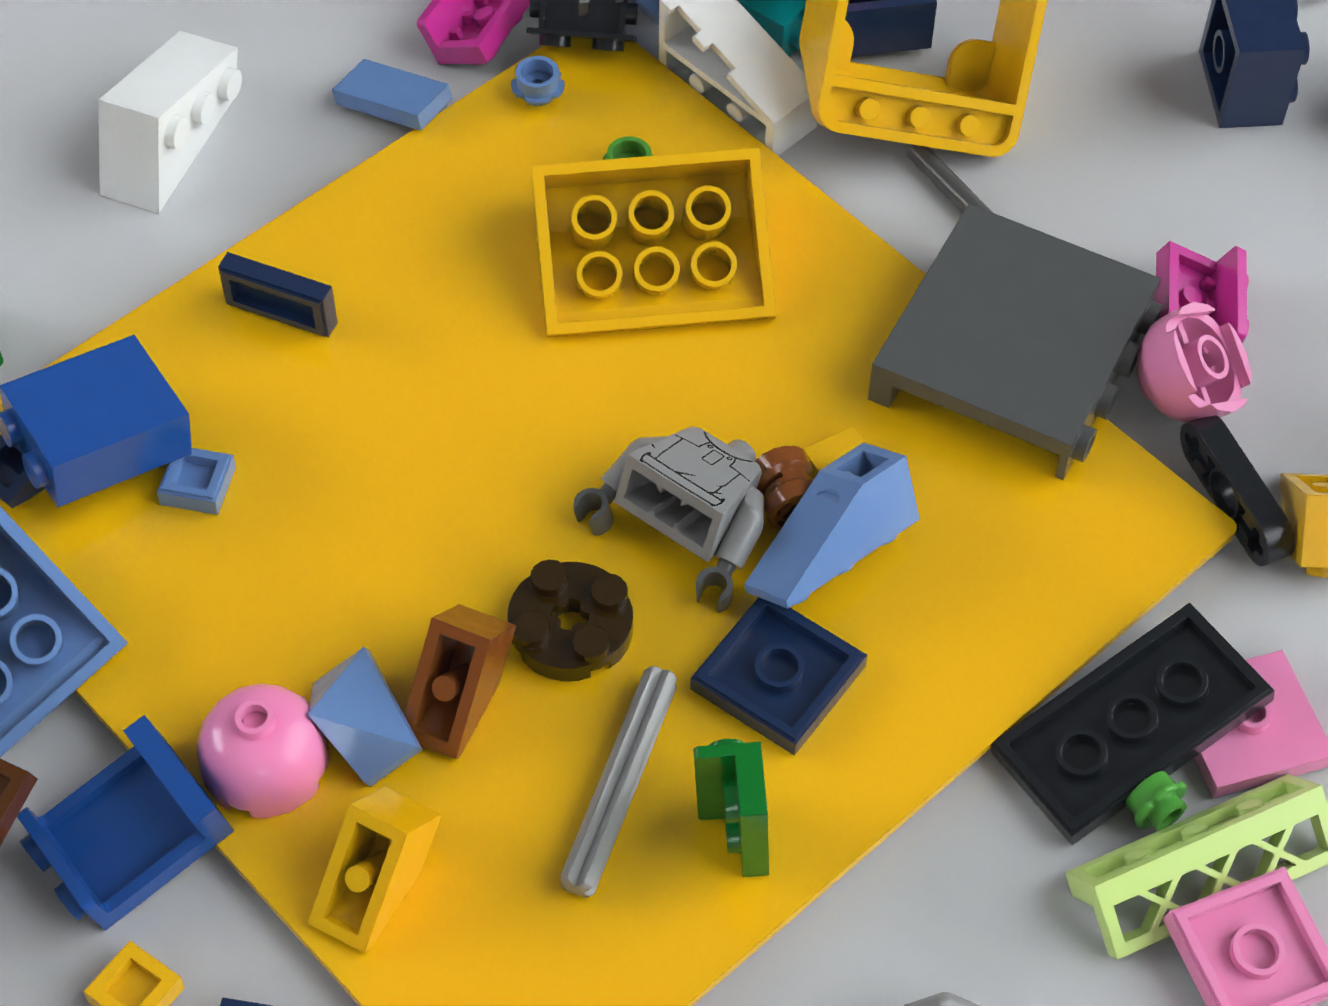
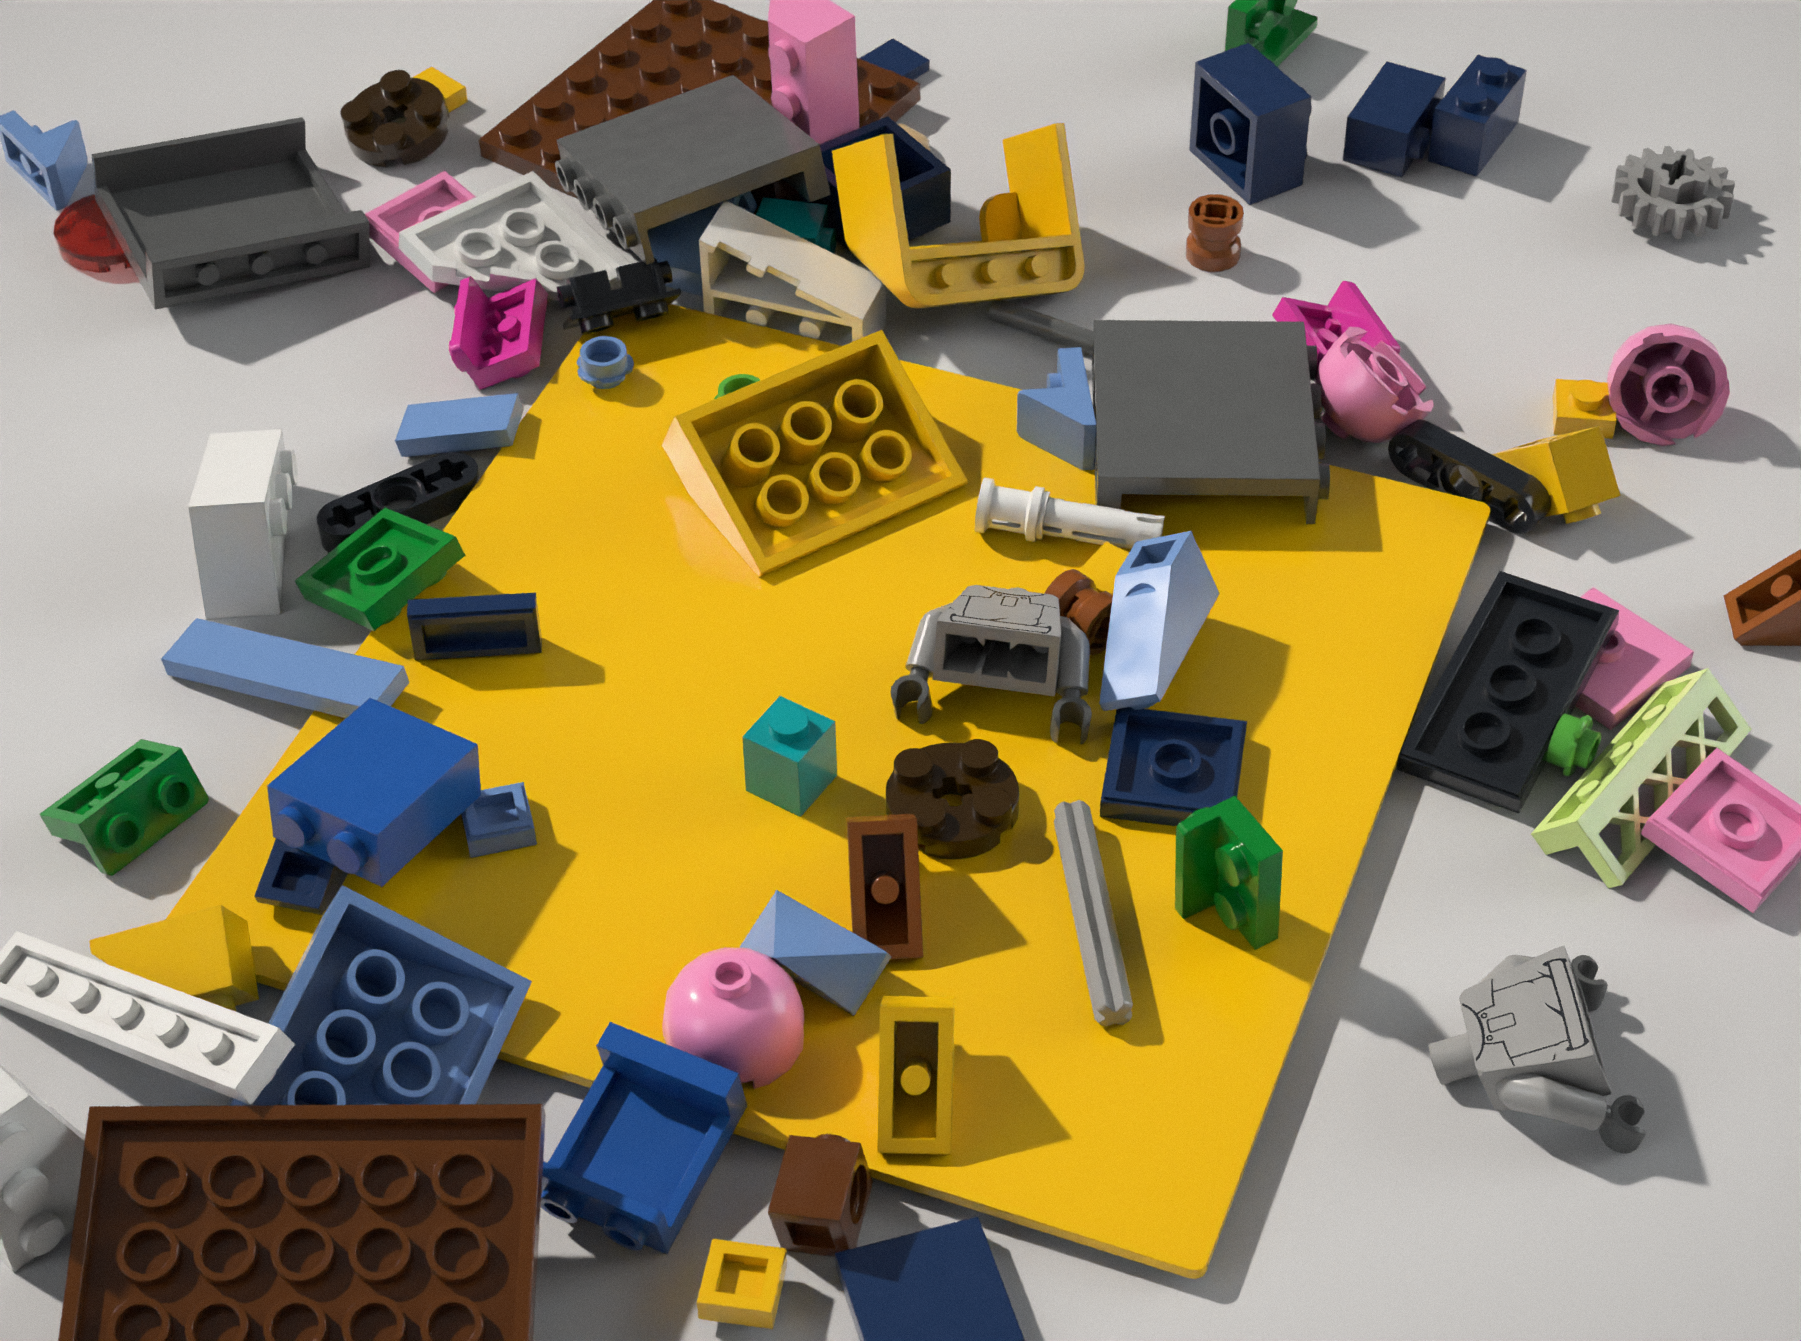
camera: 25 degrees left, 10 degrees down
(119, 273) = (282, 669): none -> medium blue tile
(237, 940) = (820, 1195): none -> reddish brown brick
(242, 208) = (380, 569): none -> green plate
(265, 139) = (444, 477): none -> black beam
(452, 524) = (790, 755): none -> teal brick
(813, 377) = (1041, 515): none -> white pin
(888, 283) = (1062, 414): none -> medium blue slope
(1157, 148) = (1214, 232): none -> dark orange wheel

